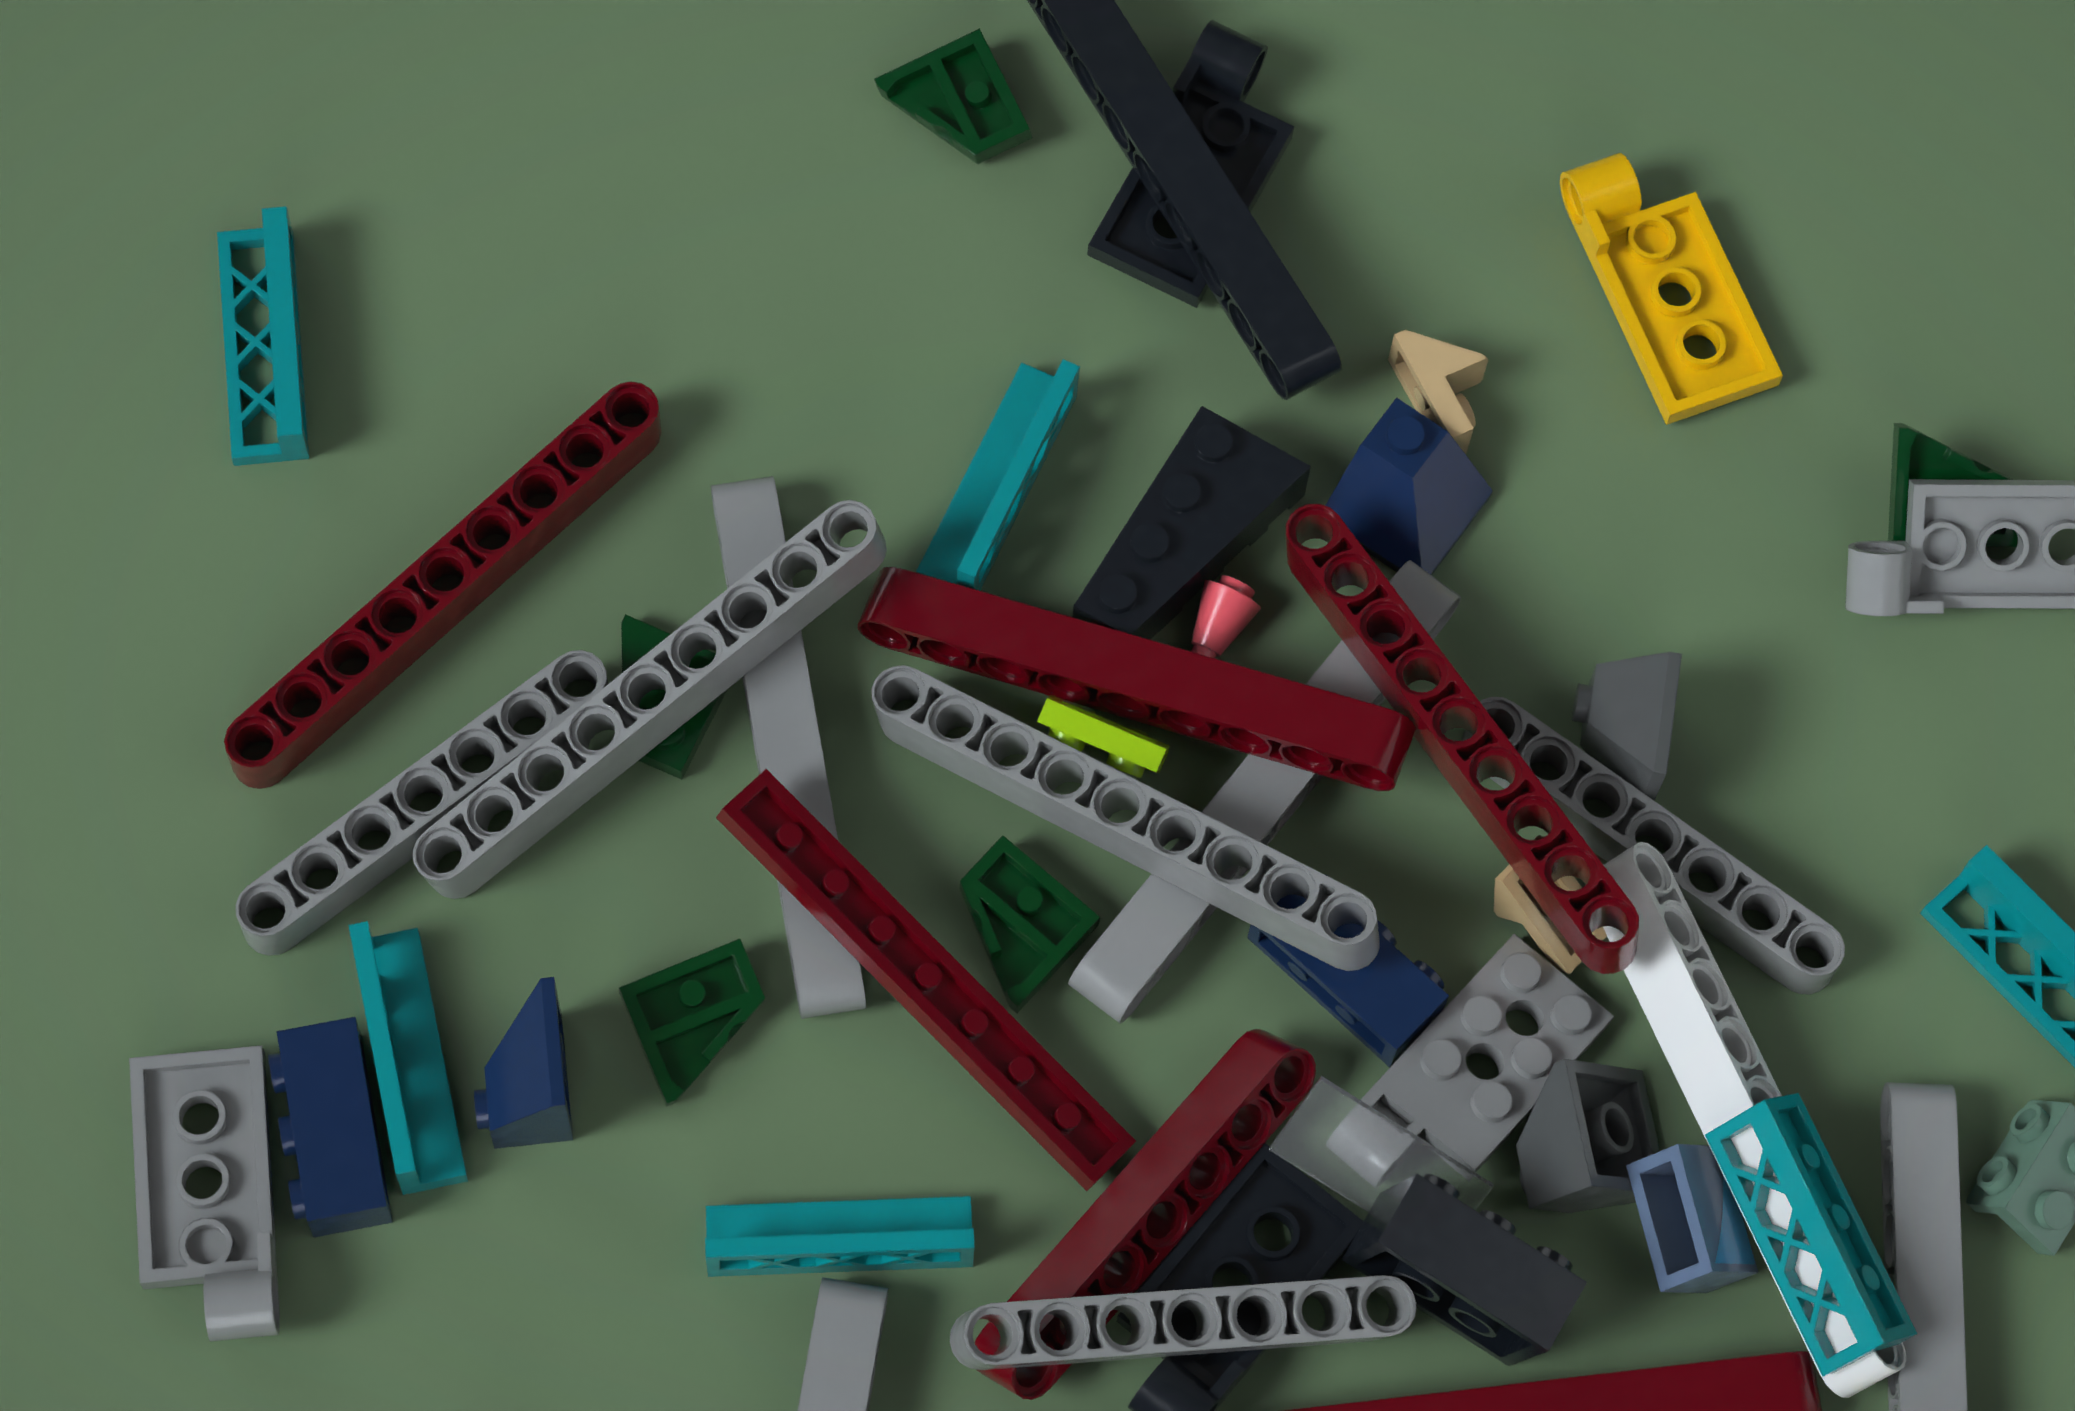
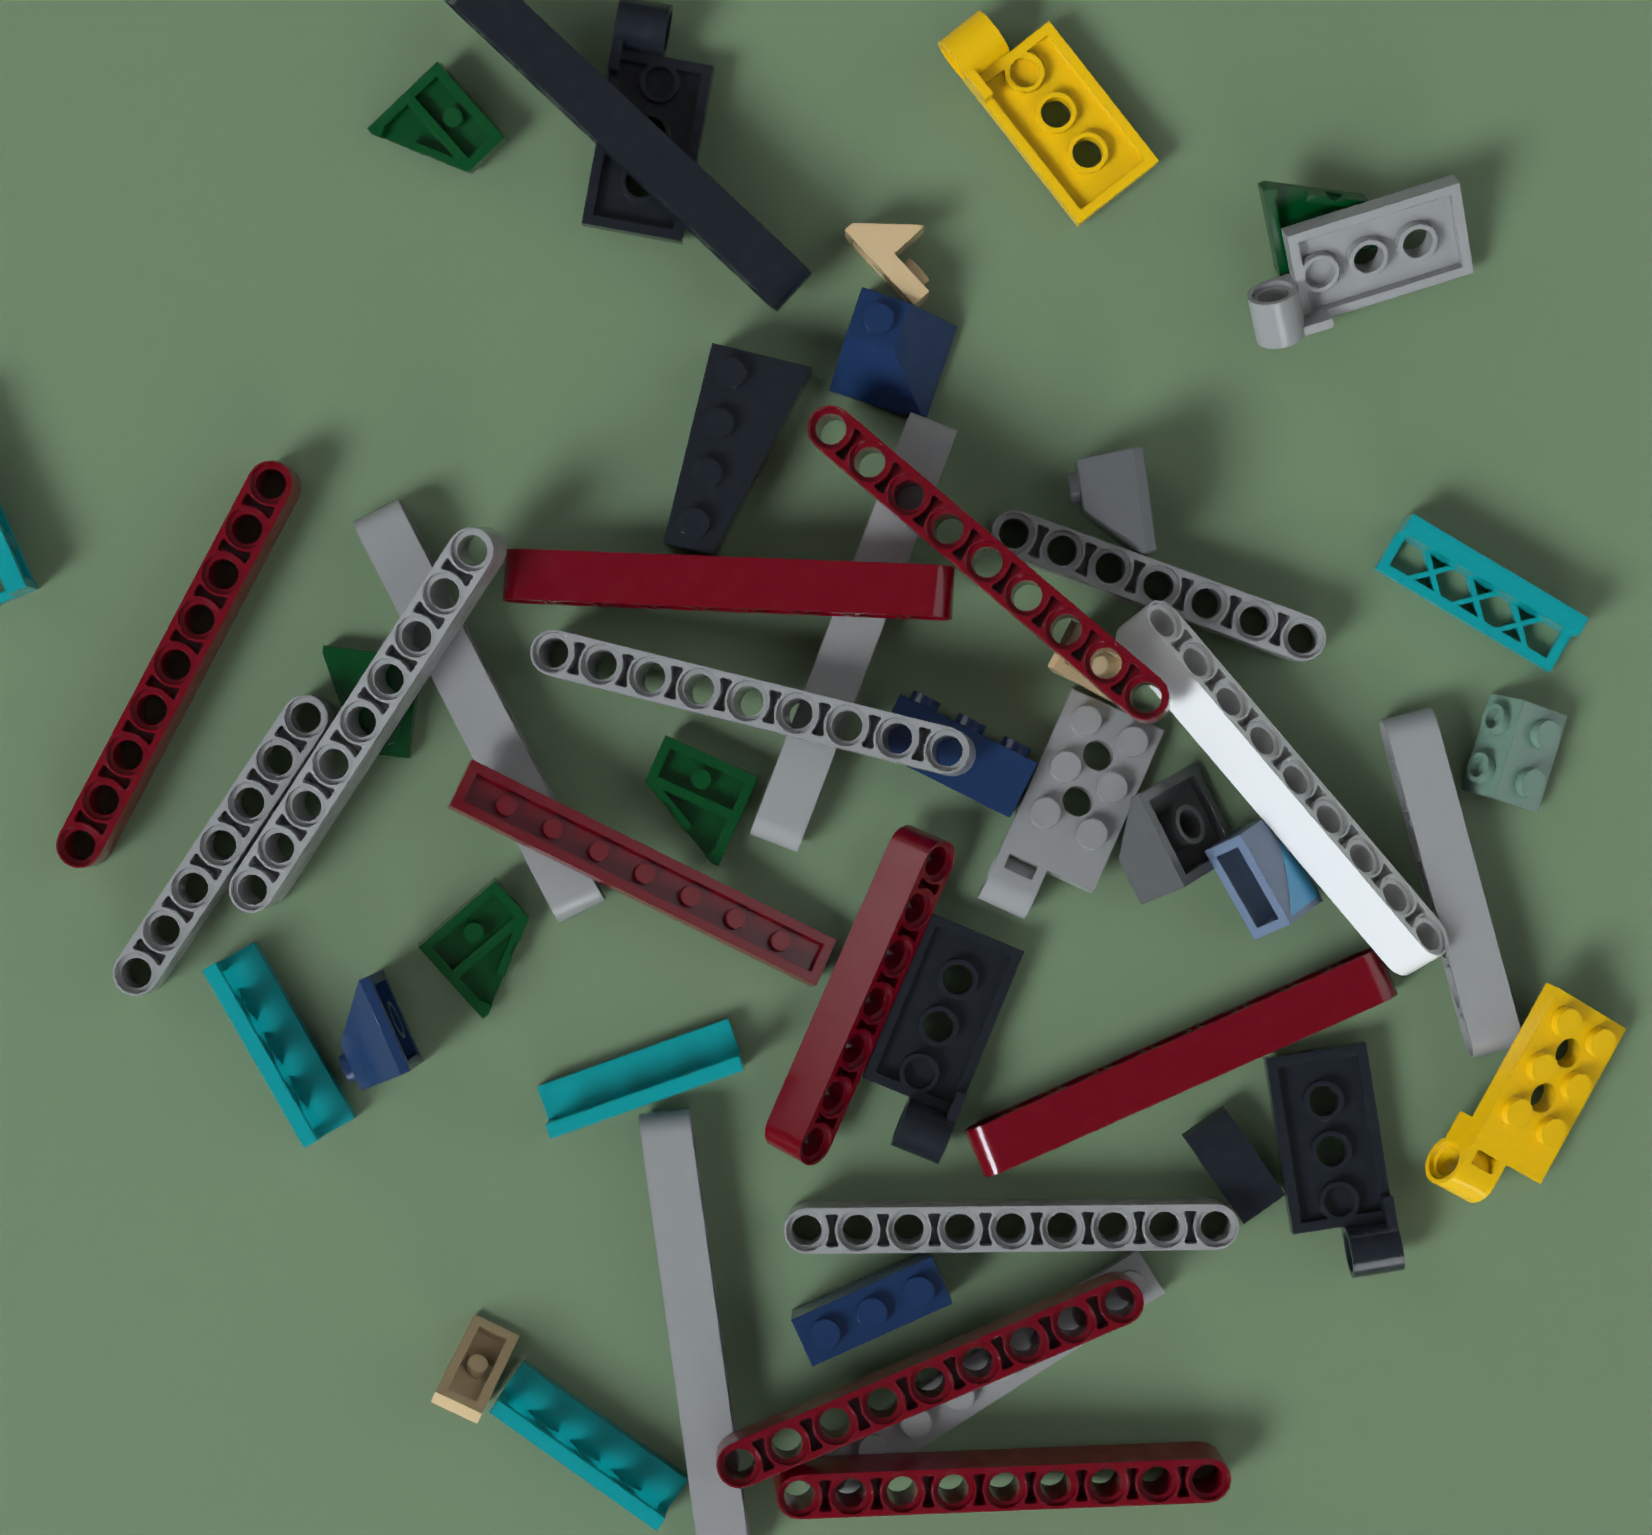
camera: 10 degrees left, 20 degrees up
(220, 1238) = (200, 1216): light grey hinge -> none
(330, 1128) = (243, 1117): dark blue brick -> none
(1001, 475) = (572, 442): teal fence -> none
(1128, 747) = (702, 636): lime plate -> none
(1214, 1313) = (889, 1080): light grey beam -> none
(1222, 615) = (778, 503): coral cone -> none
(1363, 1150) = (1023, 909): clear piece -> none
(1467, 1268) = (1108, 974): black brick -> none
(1831, 1231) = (1364, 867): teal fence -> none

